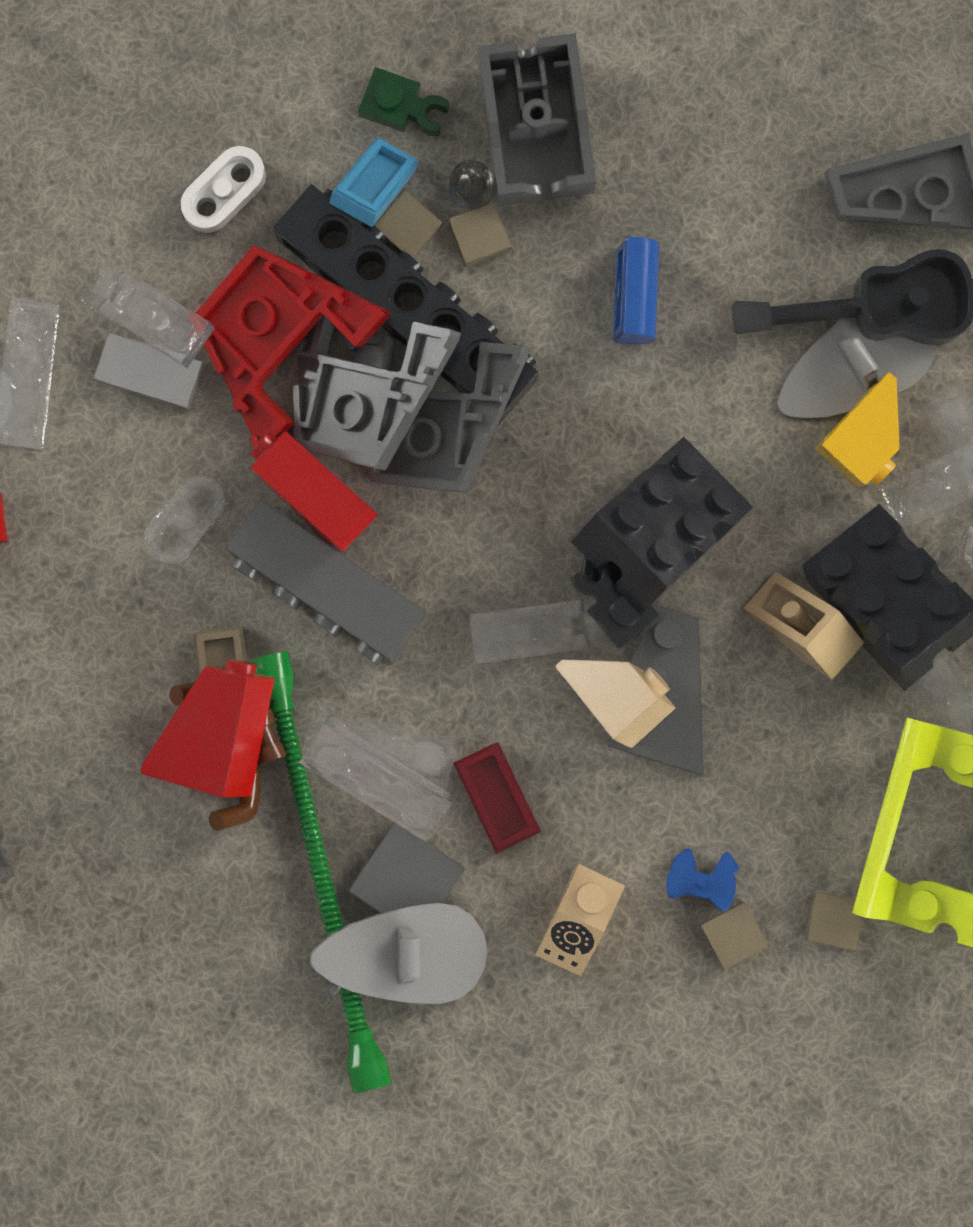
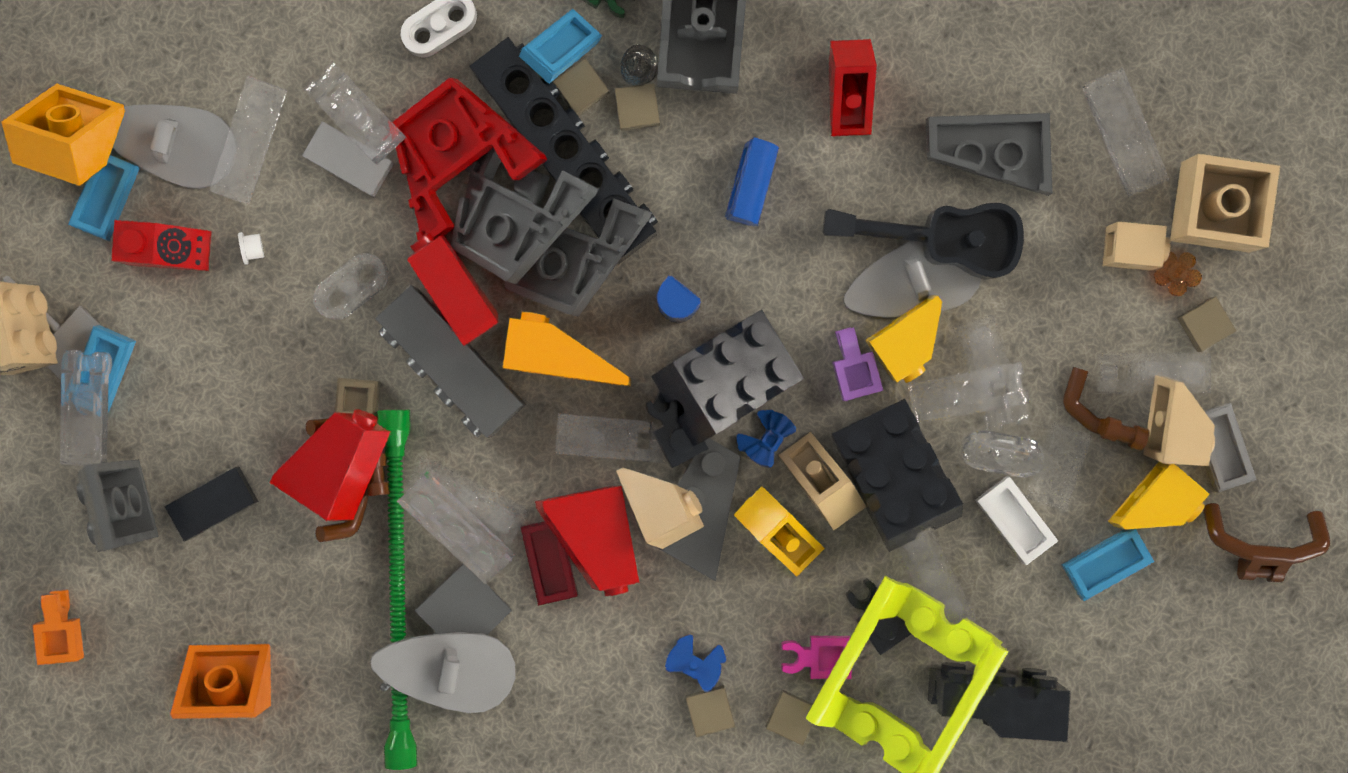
camera: 10 degrees right, 5 degrees up
(55, 500) = (250, 247): none -> white piece
(71, 820) = (211, 503): none -> black tile
(134, 1029) = (224, 682): none -> orange slope
(449, 541) = (544, 349): none -> light orange slope
(546, 751) = (595, 536): none -> red slope
(580, 919) = (593, 671): tan slope -> none
(581, 448) = (676, 301): none -> blue brick
(723, 606) = (762, 451): none -> blue piece
(728, 154) = (851, 87): none -> red slope
(766, 696) = (778, 531): none -> yellow slope
(813, 487) = (856, 372): none -> medium lavender plate
(851, 838) = (820, 656): none -> dark pink plate
(926, 785) = (887, 631): none -> black plate

